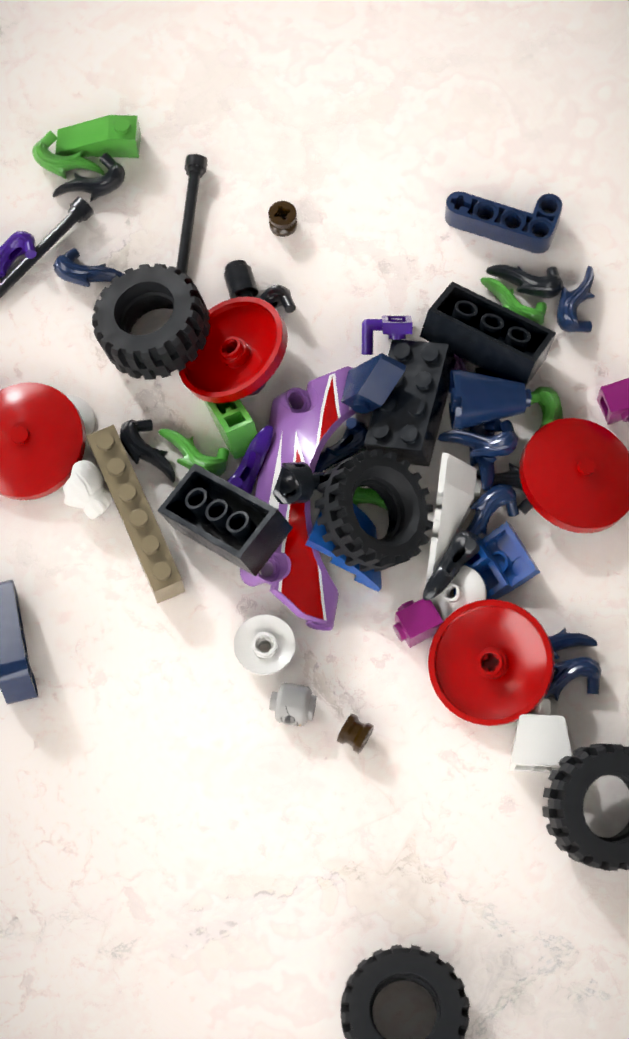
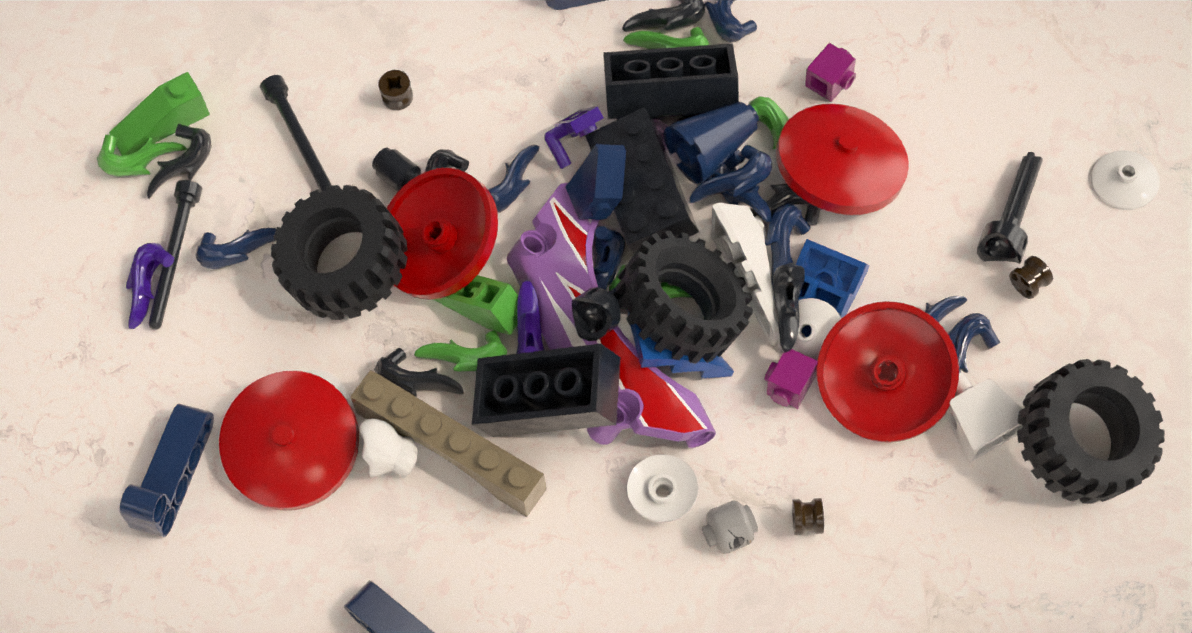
camera: 30 degrees left, 5 degrees down
(306, 348) = (512, 184): none -> dark blue piece

